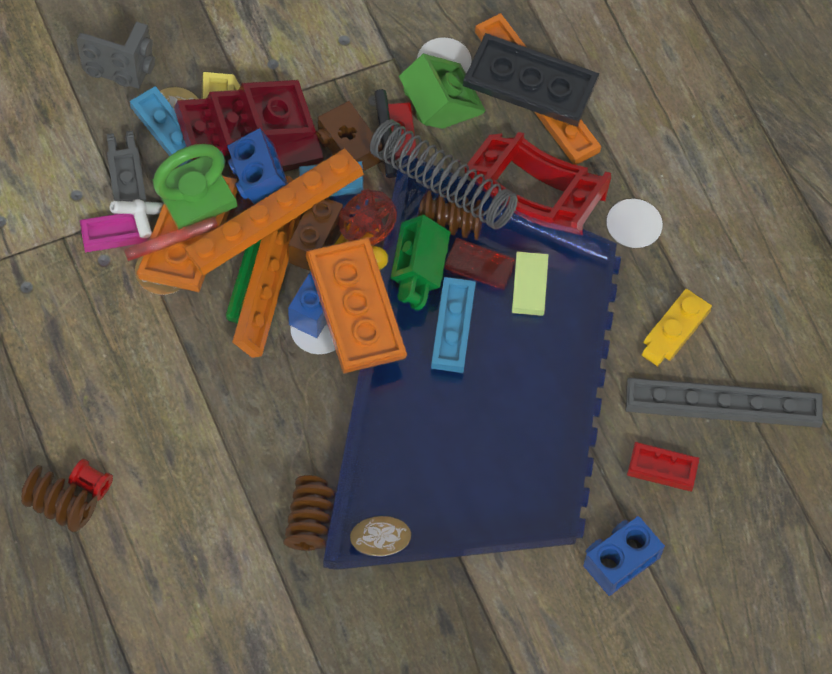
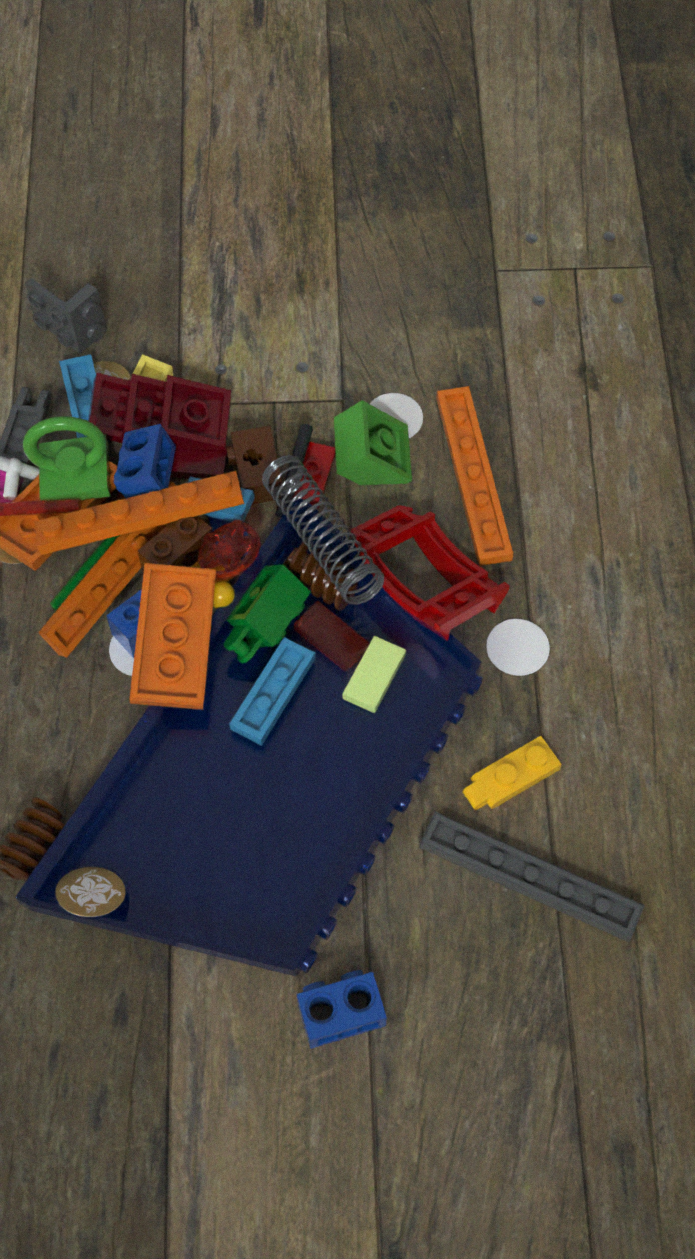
camera: 25 degrees right, 0 degrees up
(531, 79) = (468, 463): black tile -> none
(663, 466) = (430, 924): red plate -> none

